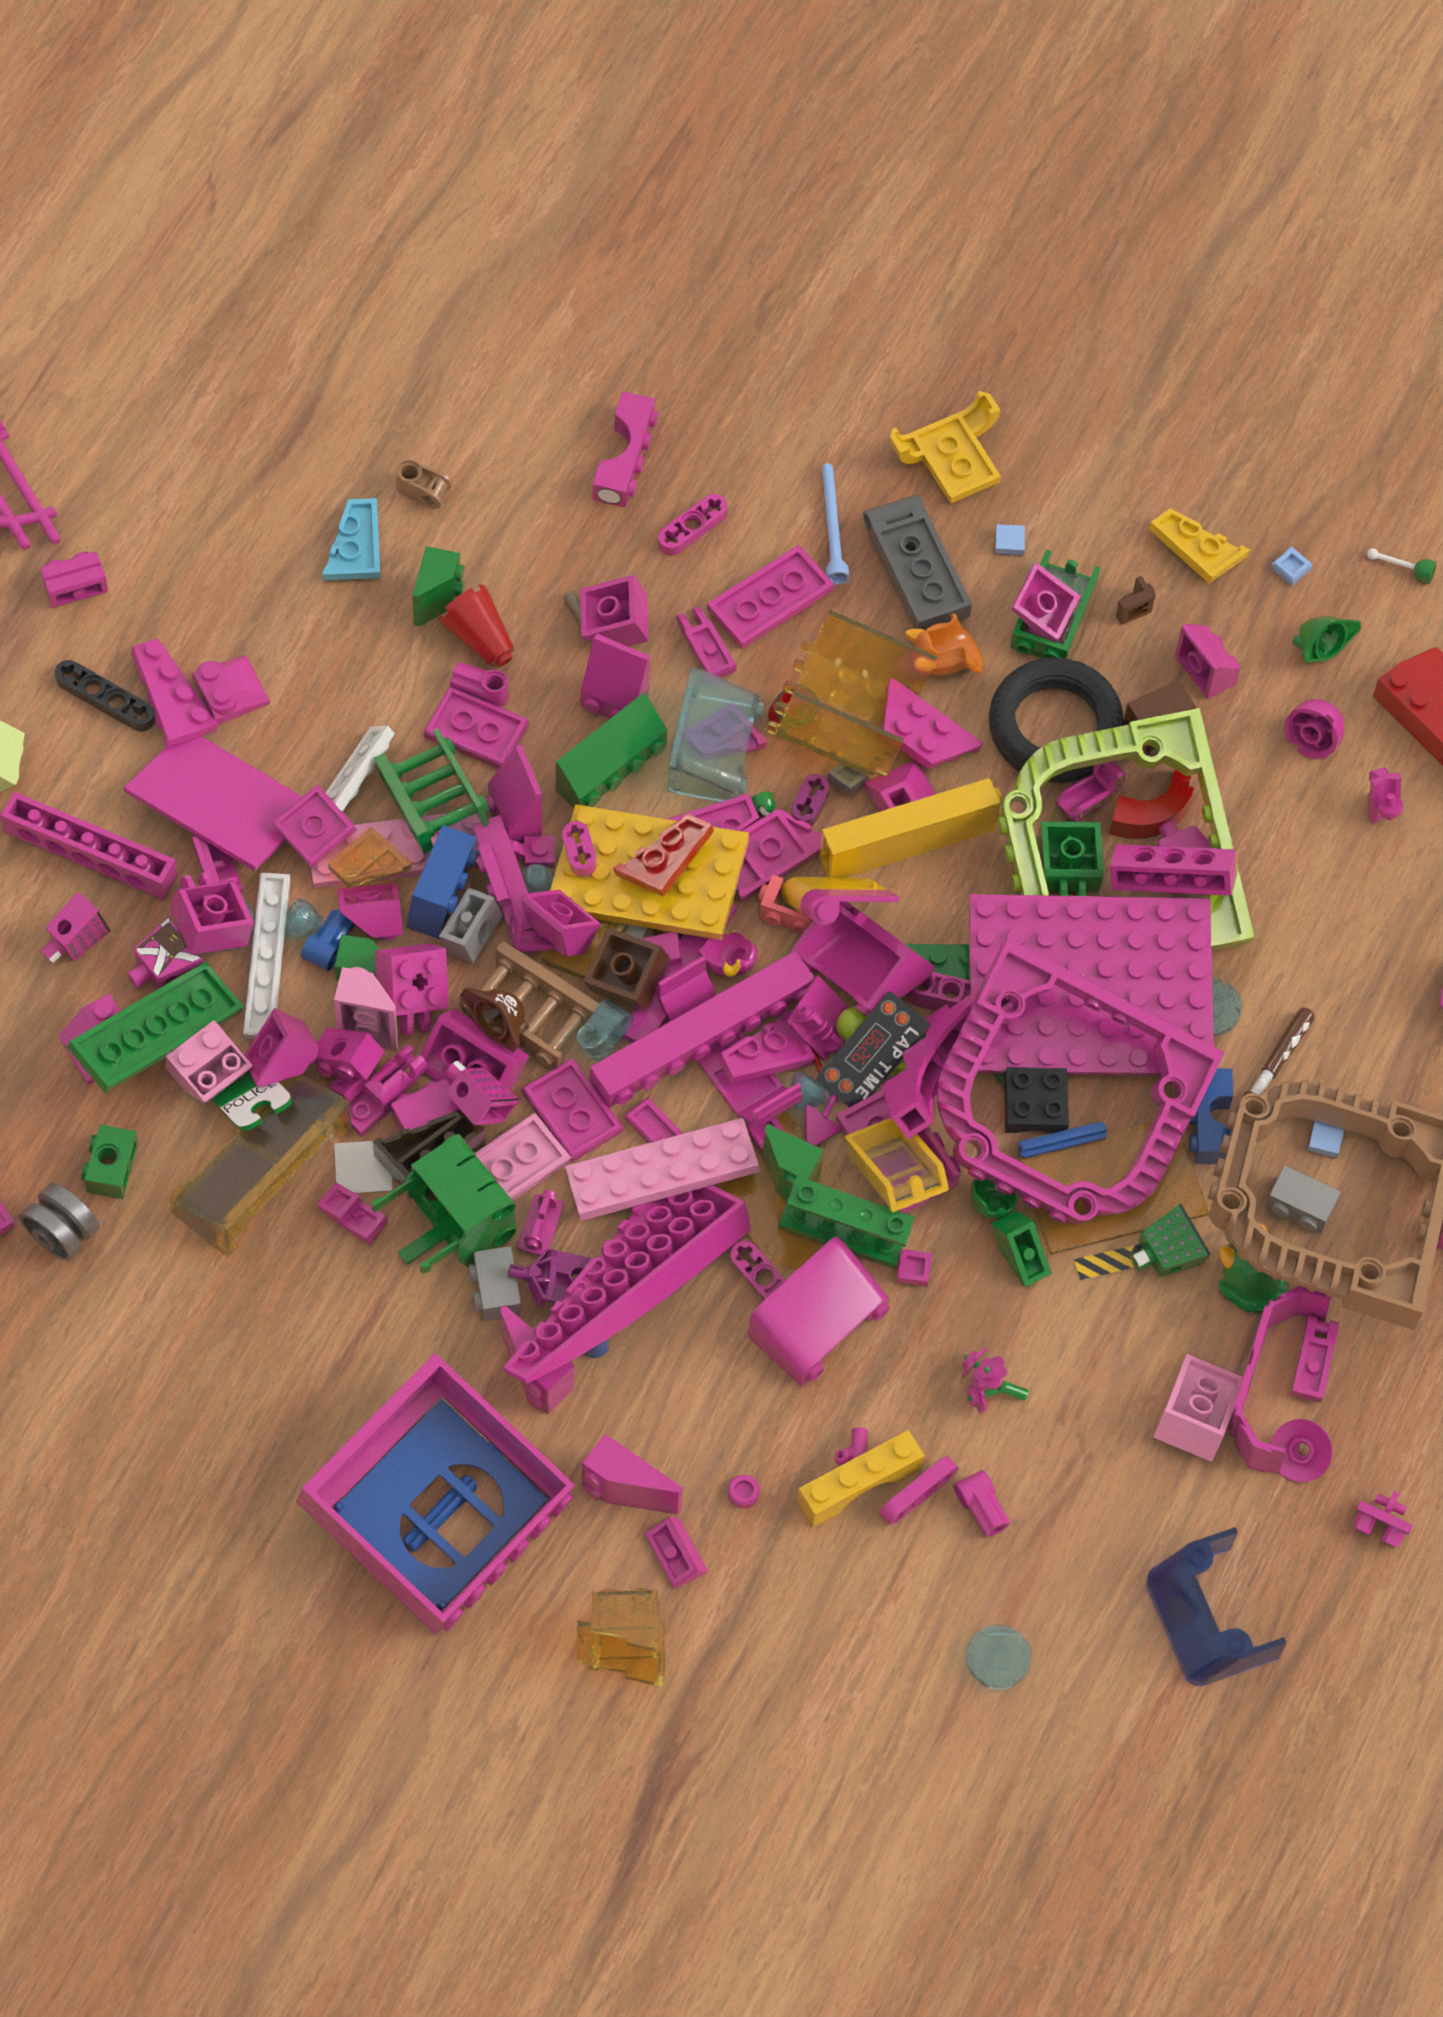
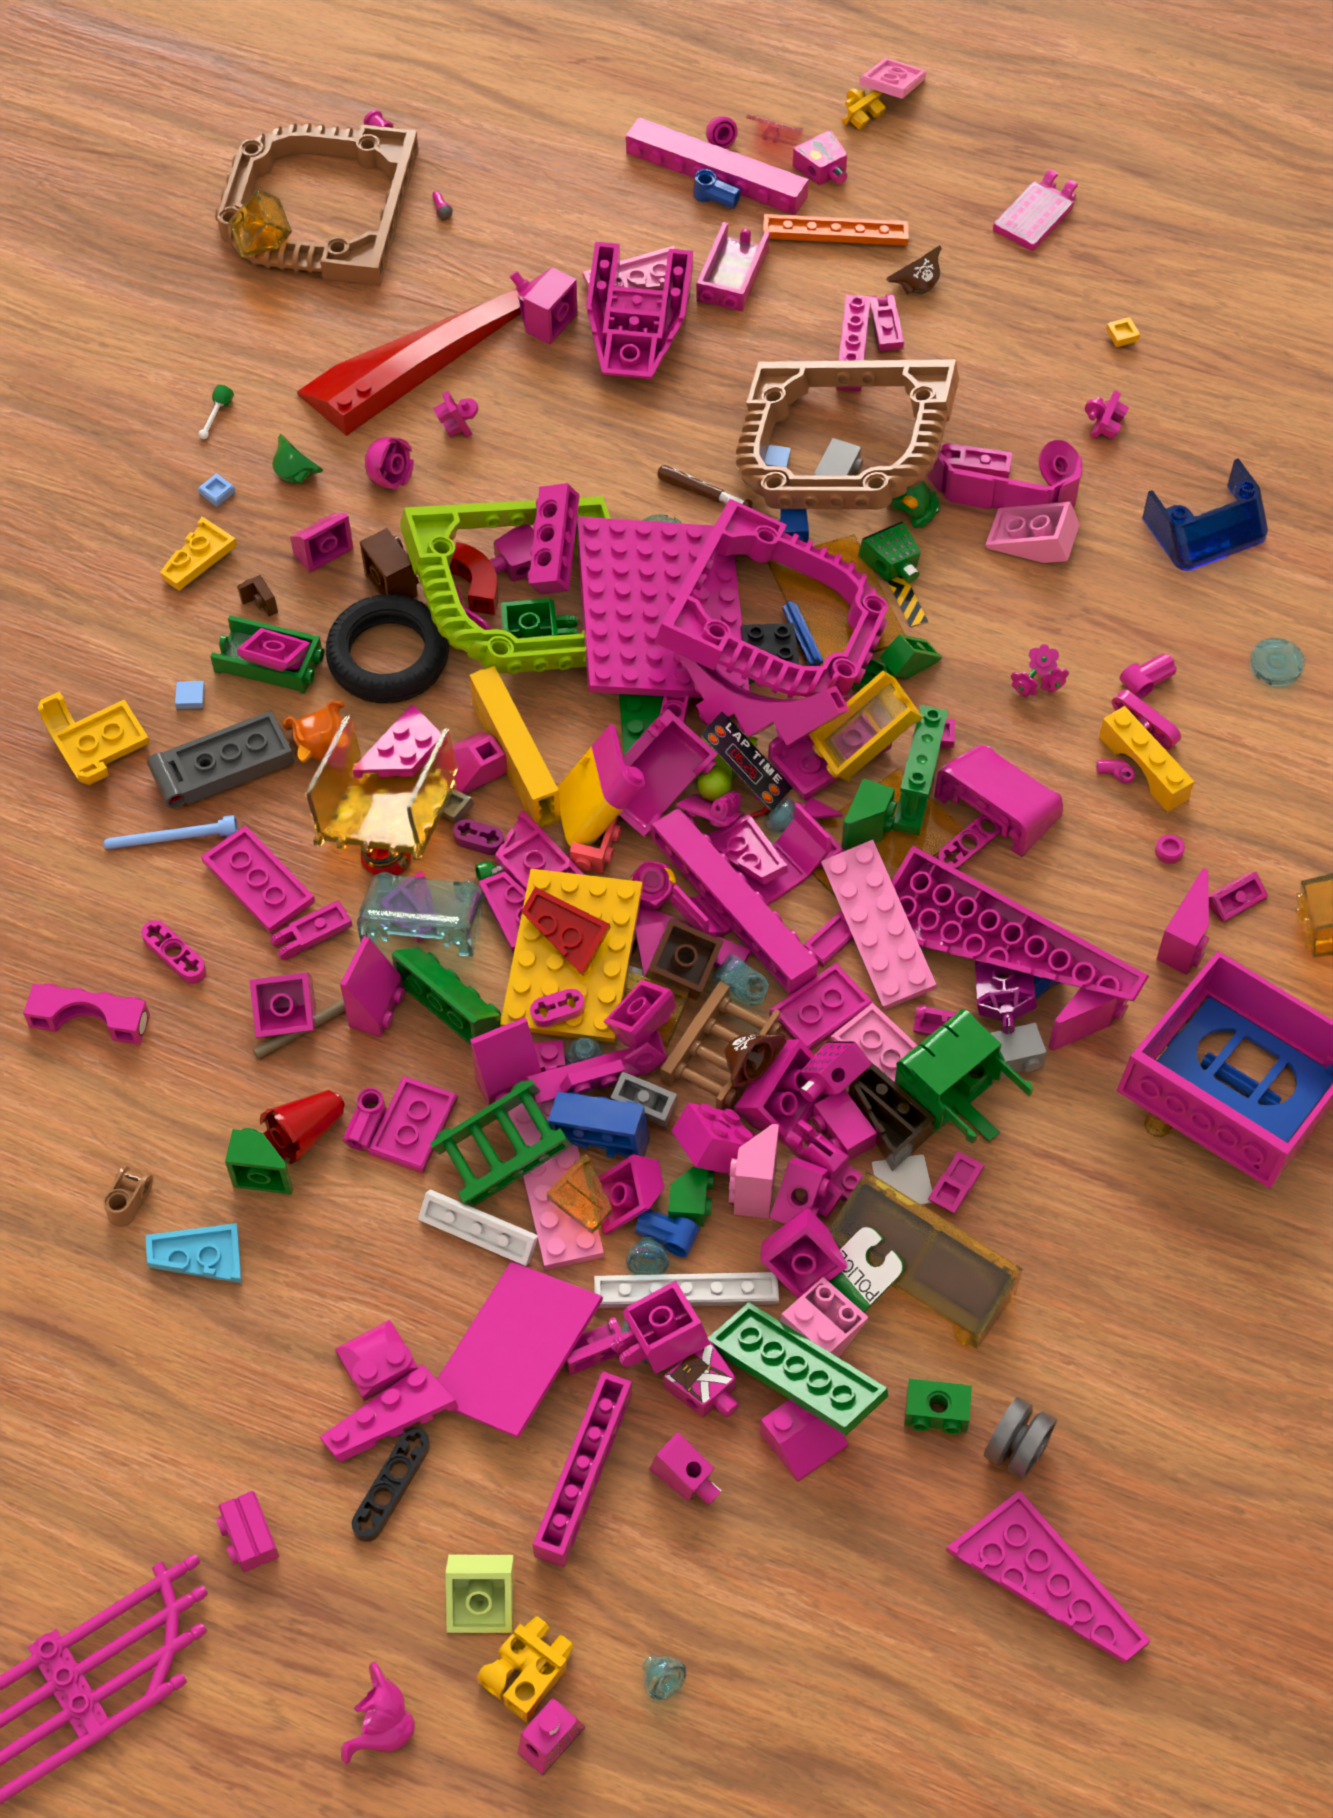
camera: 90 degrees left, 5 degrees down
(314, 826) = (548, 1248): dark pink tile -> none

